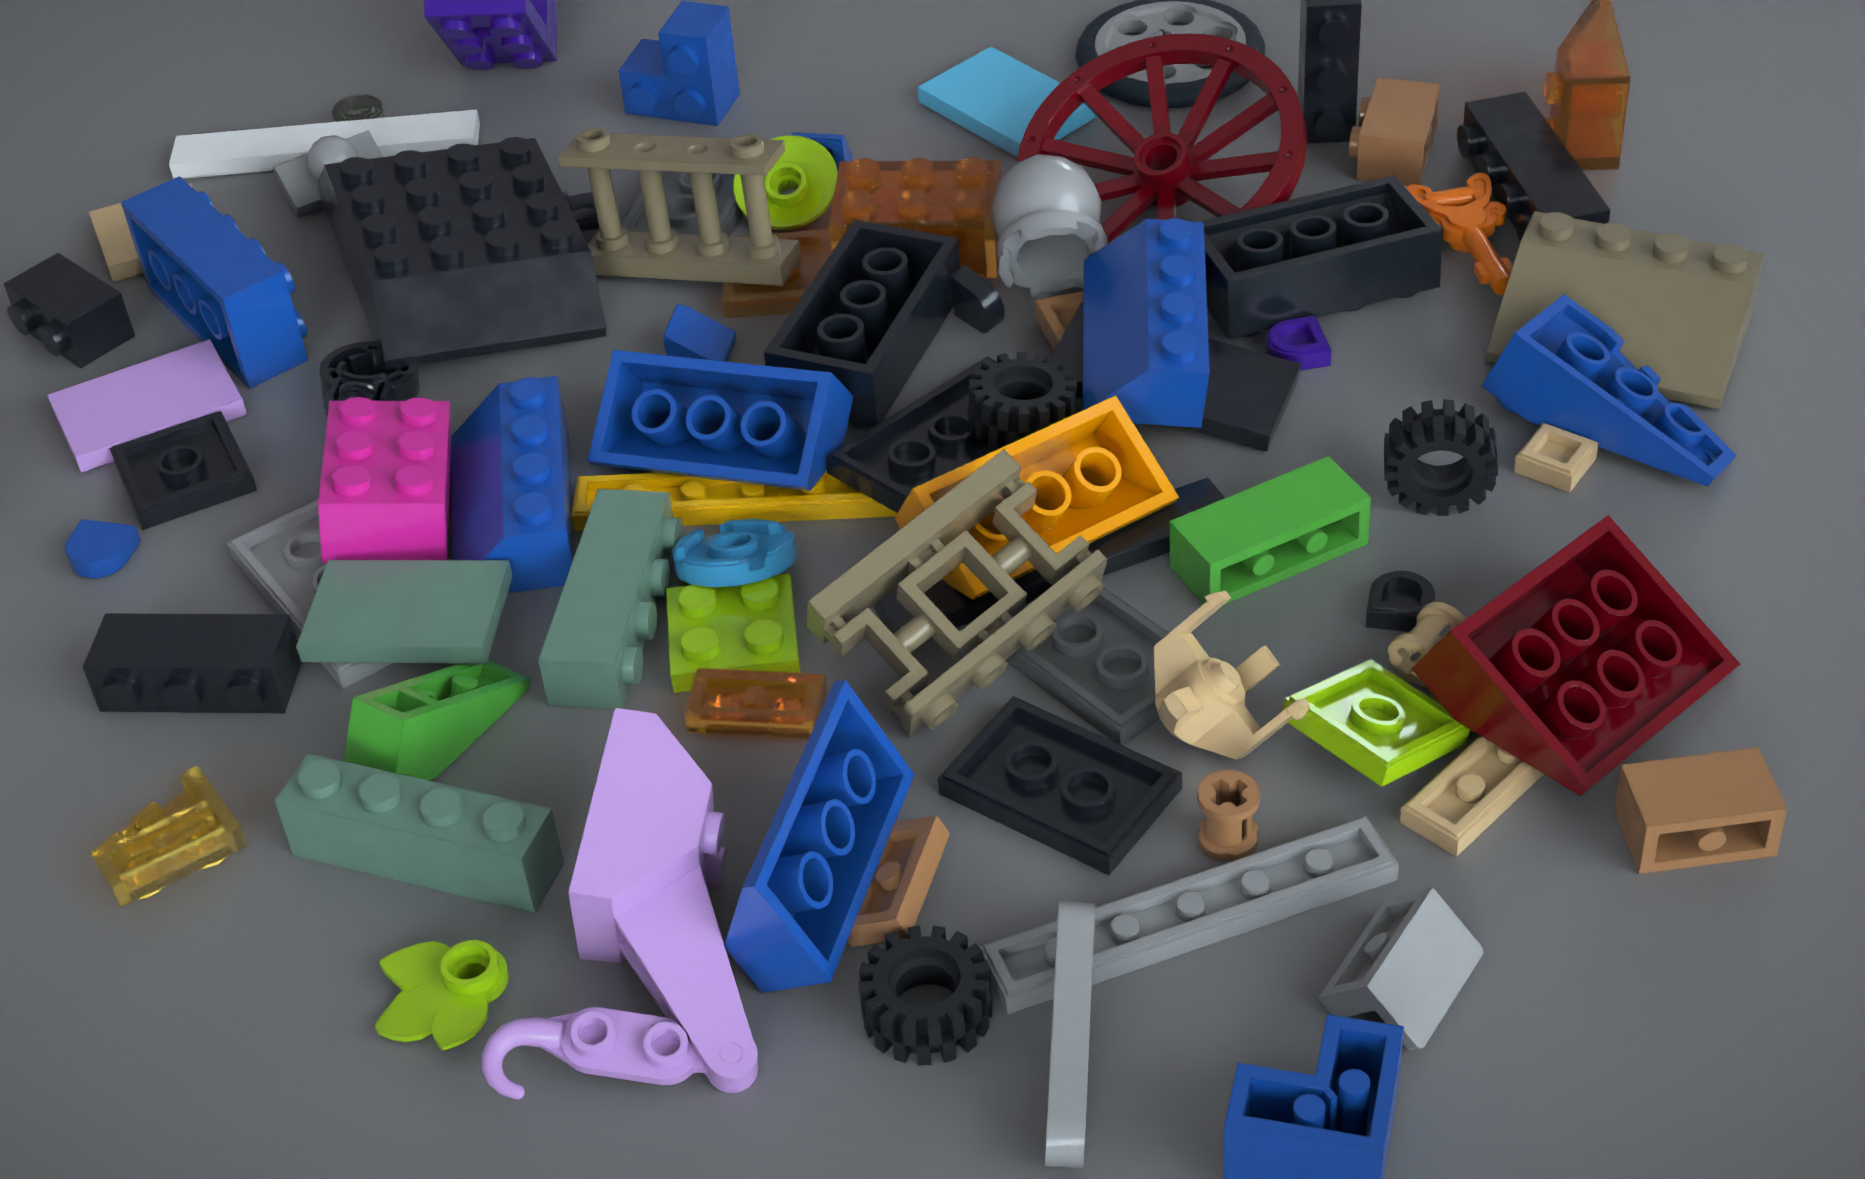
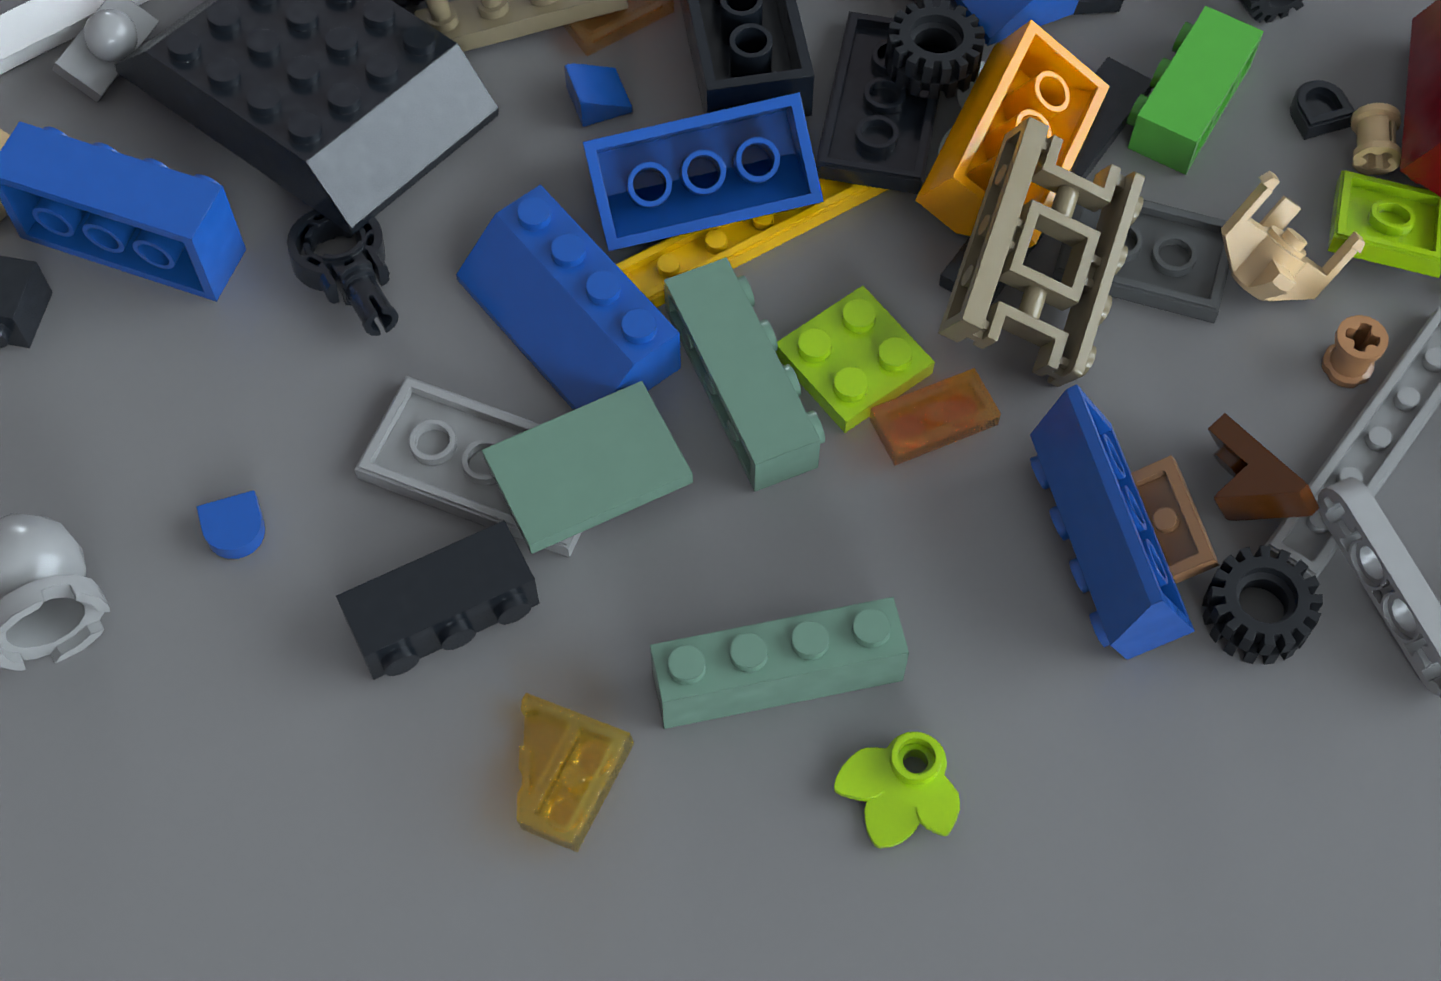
camera: 35 degrees left, 20 degrees up
(144, 401) = (140, 362): lavender tile -> none
(182, 469) = (236, 412): black tile -> none
(385, 480) = (468, 350): dark pink brick -> none
(429, 719) = (694, 558): bright green slope -> none
(645, 899) = (1006, 619): lavender slope -> none
(737, 555) = (808, 288): dark azure tile -> none
(1011, 880) = (1261, 482): none -> reddish brown slope
(1060, 784) = (1198, 371): black tile -> none

